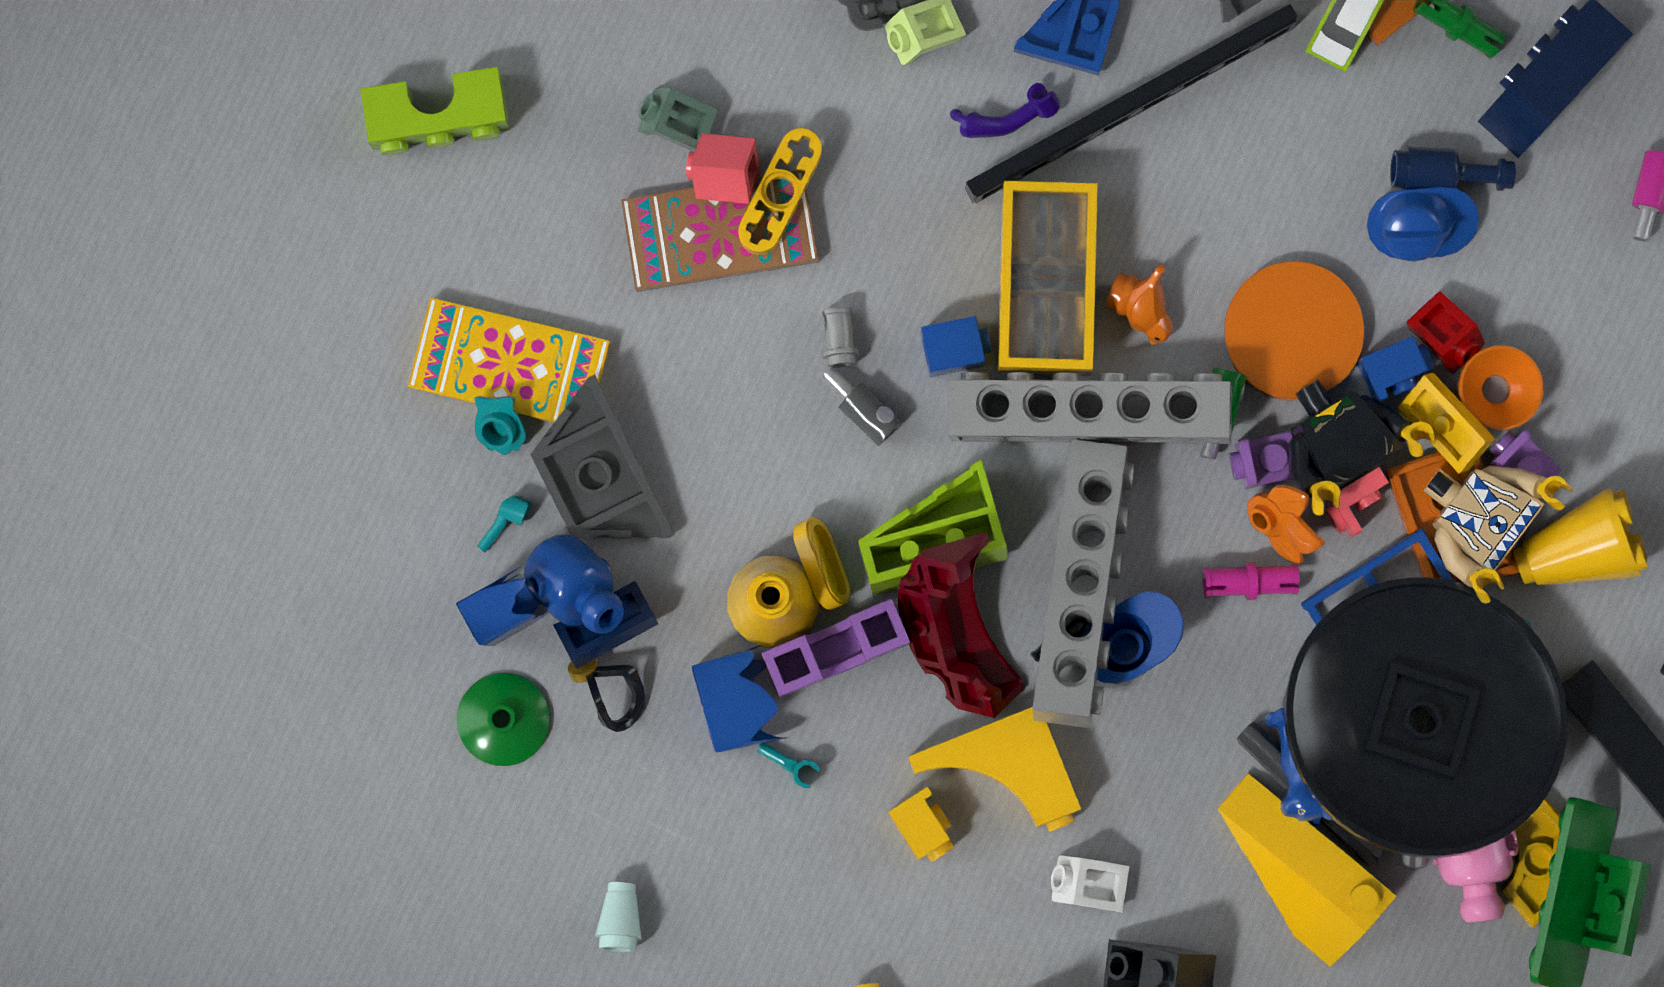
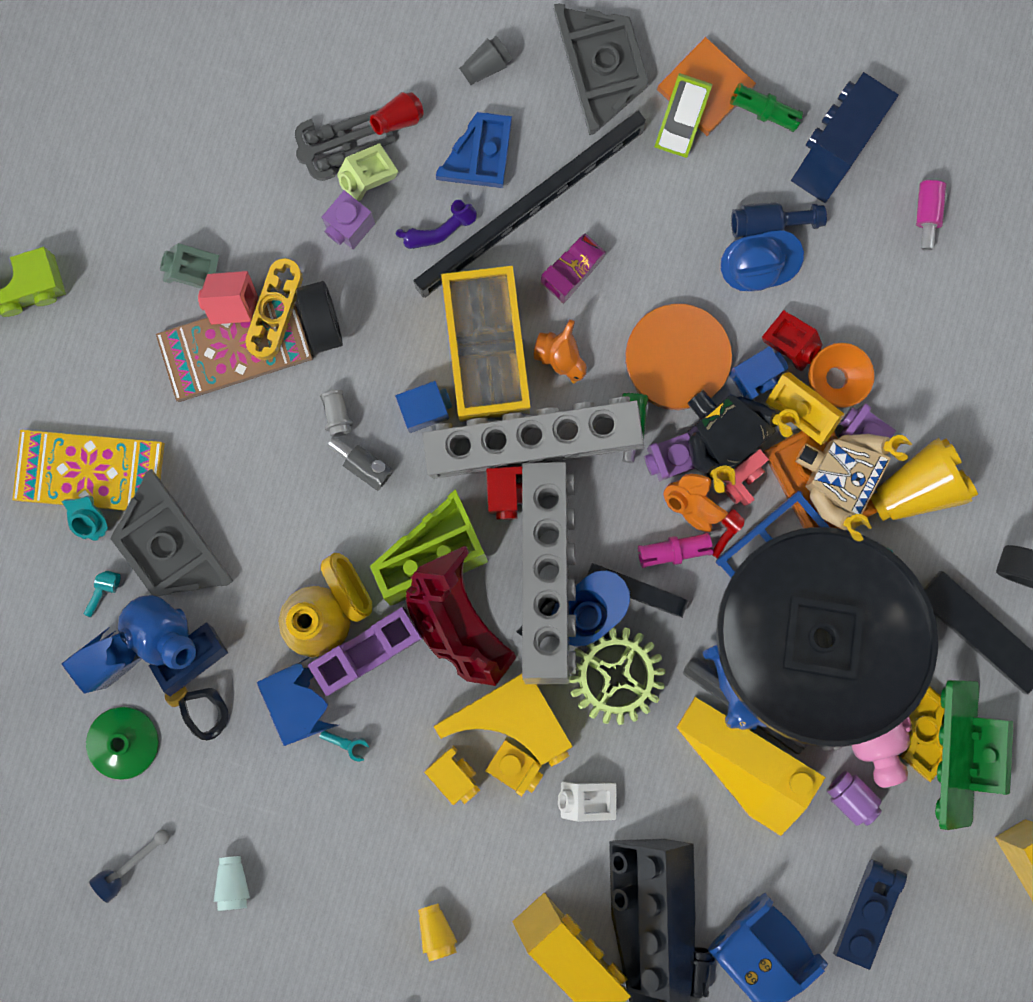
camera: 15 degrees left, 0 degrees up
(465, 892) = (109, 883): none -> hinge
(838, 211) = (319, 317): none -> black tyre
(891, 90) = (347, 220): none -> medium lavender brick
(1002, 828) = (515, 768): none -> yellow bracket
(1041, 472) = (504, 492): none -> red brick
(1174, 195) = (572, 268): none -> magenta leg
(1181, 754) = (643, 692): none -> yellowish green gear
(1209, 632) = (649, 594): none -> black beam
(1332, 557) = (733, 523): none -> red hand
(1431, 933) = (855, 799): none -> medium lavender brick

